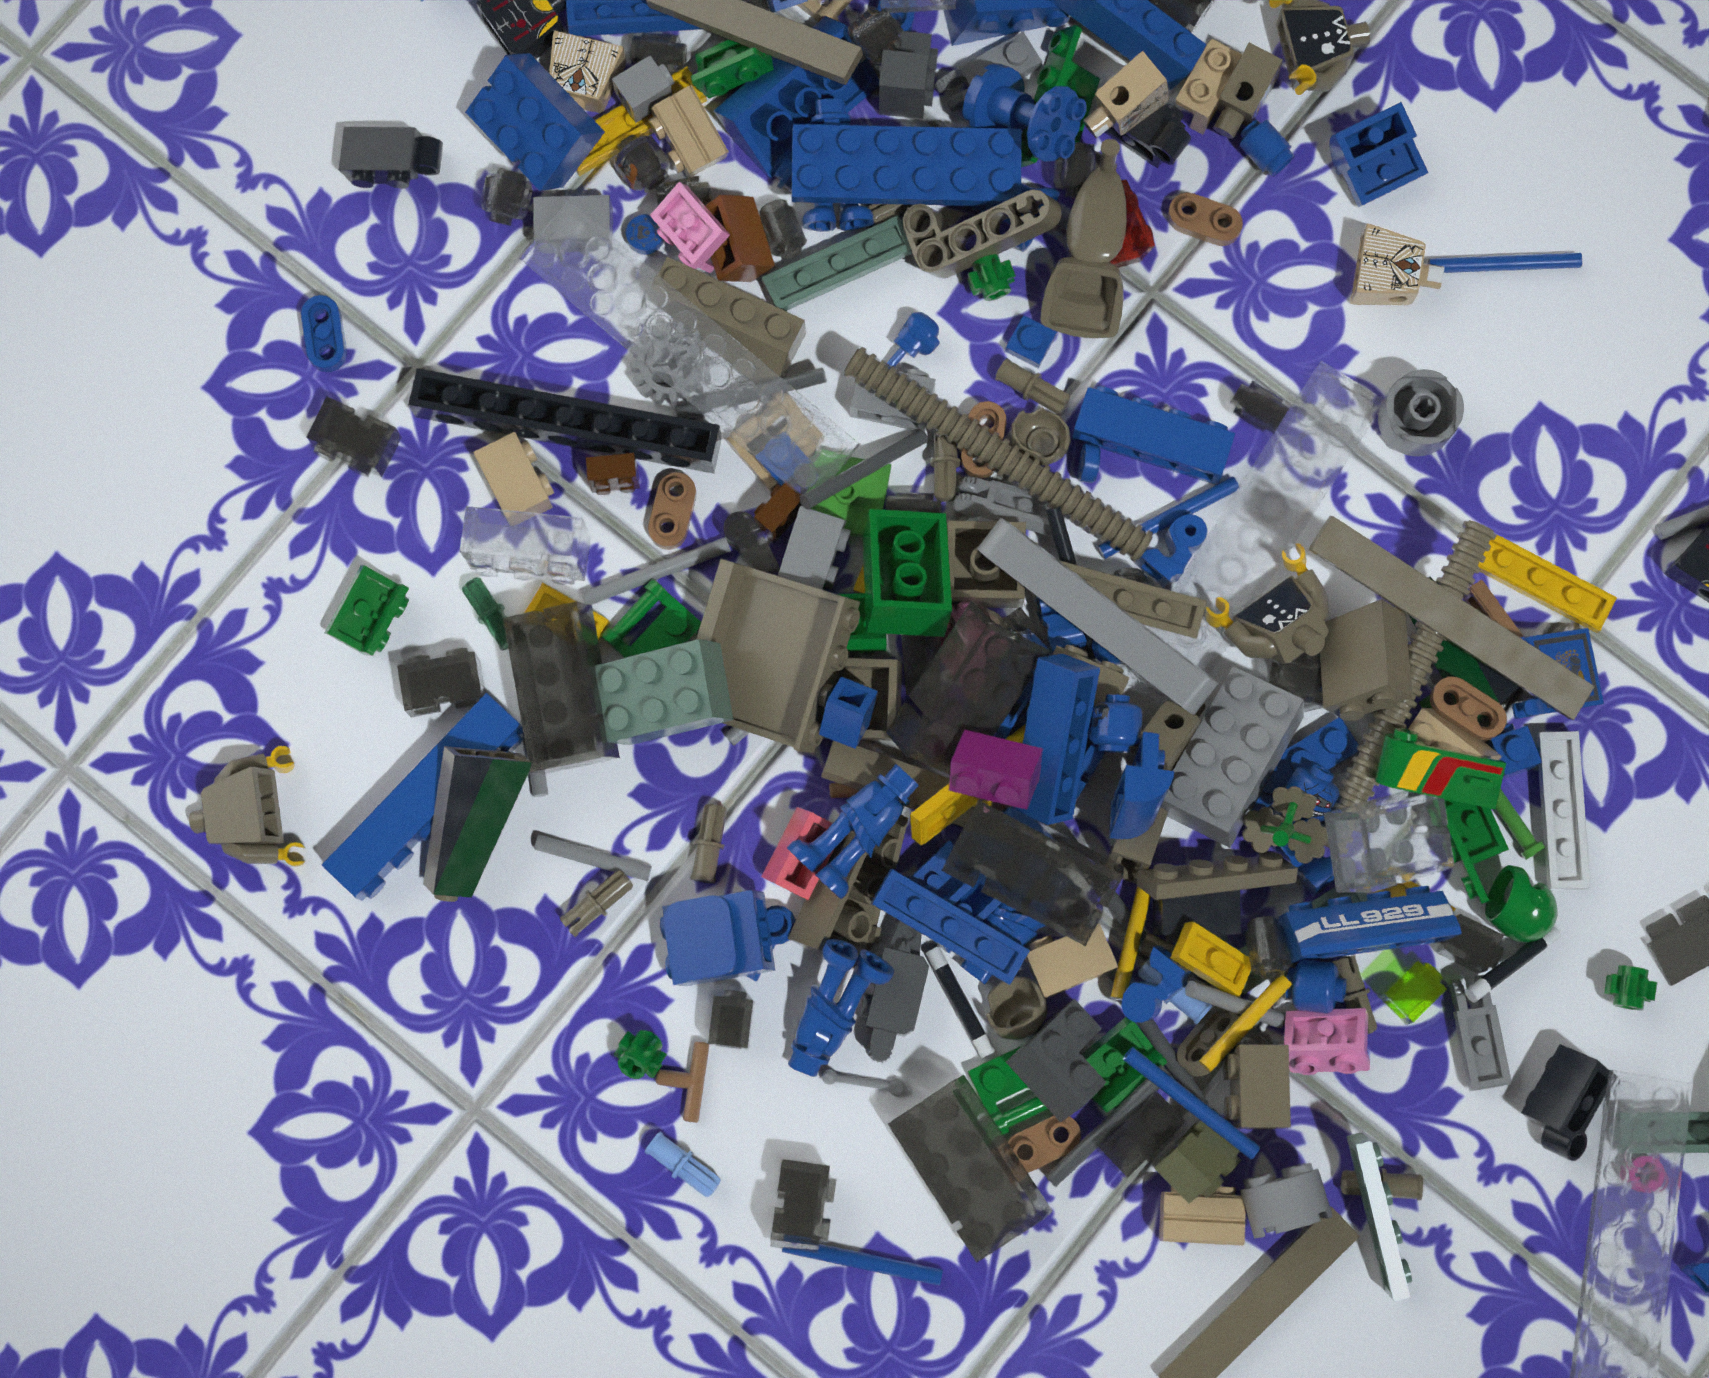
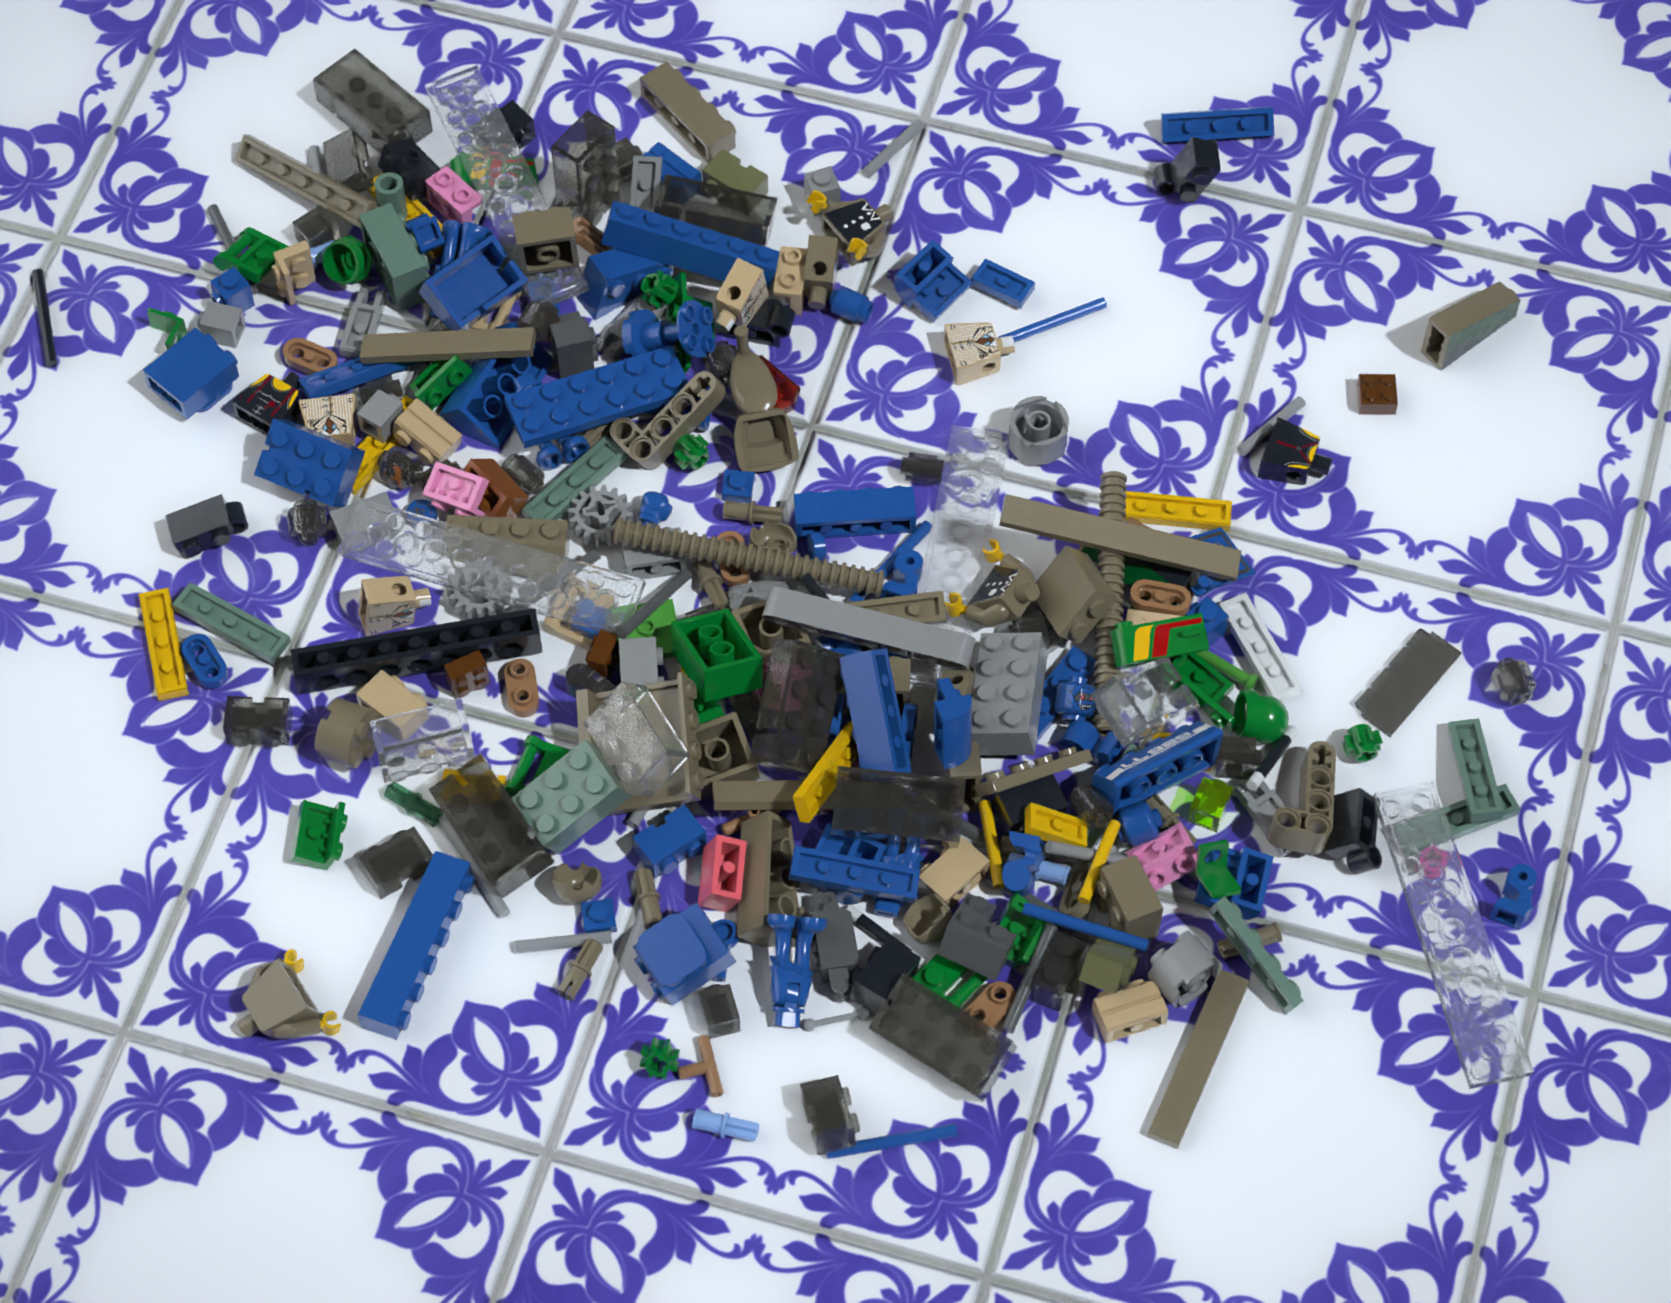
camera: 25 degrees left, 20 degrees down
(287, 290) = (163, 644): none -> yellow tile
(372, 295) = (231, 623): none -> sand green plate
(441, 499) = (346, 733): none -> dark tan brick
(469, 815) = (458, 937): slope -> none
(548, 341) = (389, 603): none -> tan torso
(633, 794) = (578, 884): none -> dark tan hair
(645, 842) = (599, 916): none -> blue plate
(656, 571) = (531, 728): light grey bar -> none
(761, 786) = (670, 843): none -> blue brick
(762, 656) = (636, 739): none -> clear piece
(784, 174) = (511, 438): blue plate -> none
(836, 319) = (596, 514): none -> light grey gear
(842, 718) = (716, 754): blue brick -> none
(866, 813) = (759, 816): blue piece -> none
(936, 1060) = (881, 974): none -> black brick
(995, 769) = (841, 743): magenta brick -> none
(1038, 42) = (658, 289): none -> green gear
(1116, 724) = (915, 688): blue head -> none
(1204, 222) = (828, 366): medium nougat plate -> none
(1269, 830) = (1065, 701): dark tan plant -> none
(1375, 1100) = (1215, 875): none -> green bracket
(1396, 1105) = (1252, 874): none -> blue brick
(1465, 187) = (1003, 283): none -> blue plate
(1534, 1036) = (1311, 824): none -> dark tan beam

